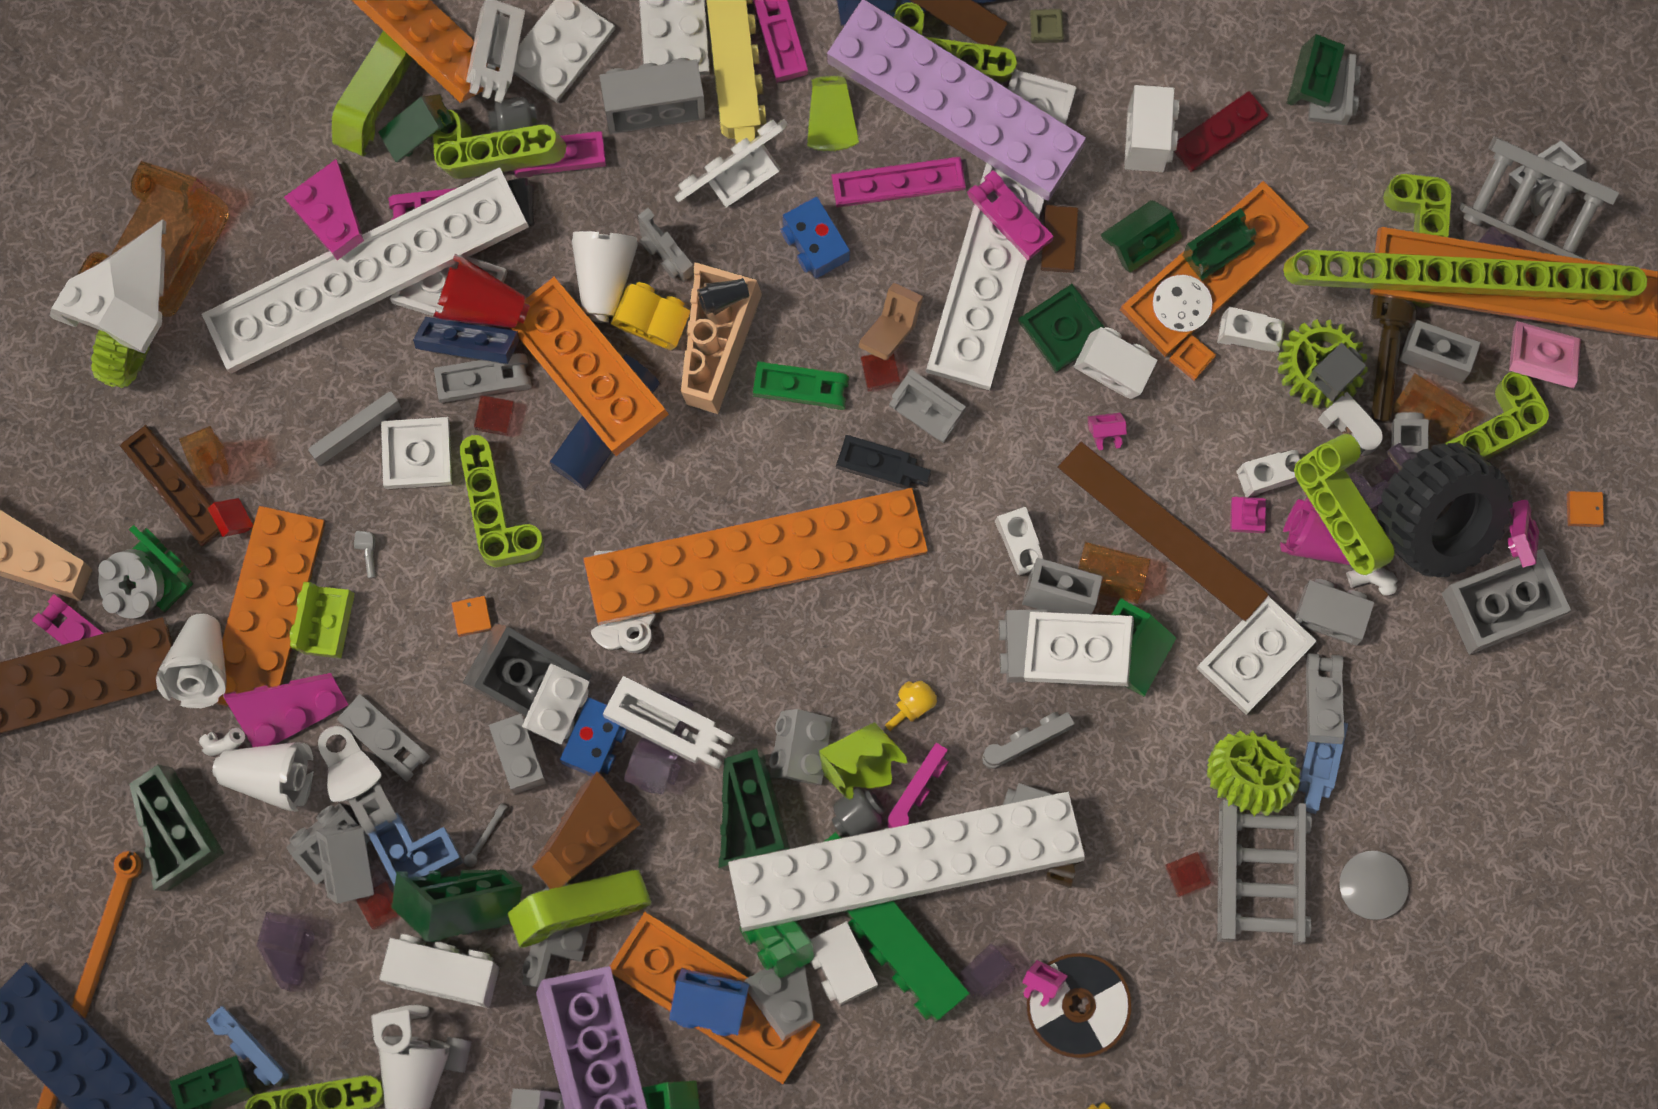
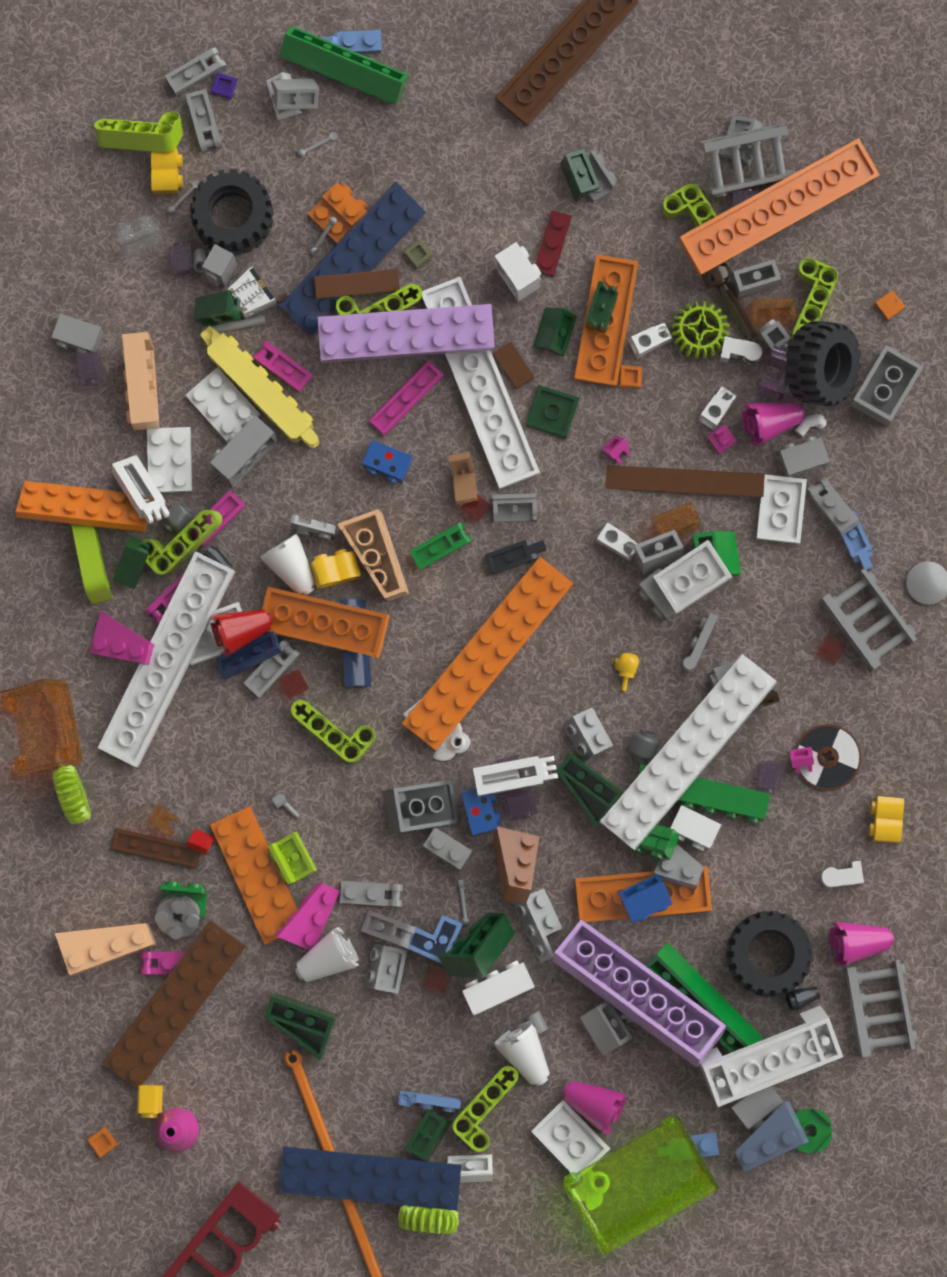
camera: 30 degrees left, 5 degrees up
(120, 292) = (52, 770): white wedge -> none
(195, 664) = (249, 930): white cone -> none
(214, 747) = (288, 965): white arm -> none
(282, 947) = (406, 1037): clear purple slope -> none
(344, 863) = (405, 971): light grey hinge -> none
(349, 770) = (368, 923): white piece -> none
(354, 428) = (227, 746): light grey tile -> none
(398, 1016) = (493, 1027): white piece -> none
(416, 453) = (269, 734): white plate -> none
(471, 616) = (366, 796): orange tile -> none
(556, 704) = (449, 808): white bracket -> none
(577, 905) = (541, 901): lime beam -> none
(720, 295) = (366, 532): black cone -> none
(740, 172) = (320, 457): white bracket -> none
(831, 116) = (343, 389): lime piece -> none
(860, 760) = (624, 718): lime piece -> none
(917, 790) = (664, 711): dark pink plate -> none
(1010, 216) = (480, 373): dark pink plate -> none
(1116, 362) = (594, 410): white brick -> none
(1182, 303) = (604, 352): white sticker -> none
(1253, 773) = (826, 576): lime gear -> none
(1337, 371) = (713, 330): dark grey brick -> none
(1341, 504) = (769, 400): lime beam -> none
(1480, 271) = (750, 225): lime beam -> none
(1524, 534) = (871, 344): dark pink plate -> none
(1545, 354) = (810, 239): bright pink plate -> none

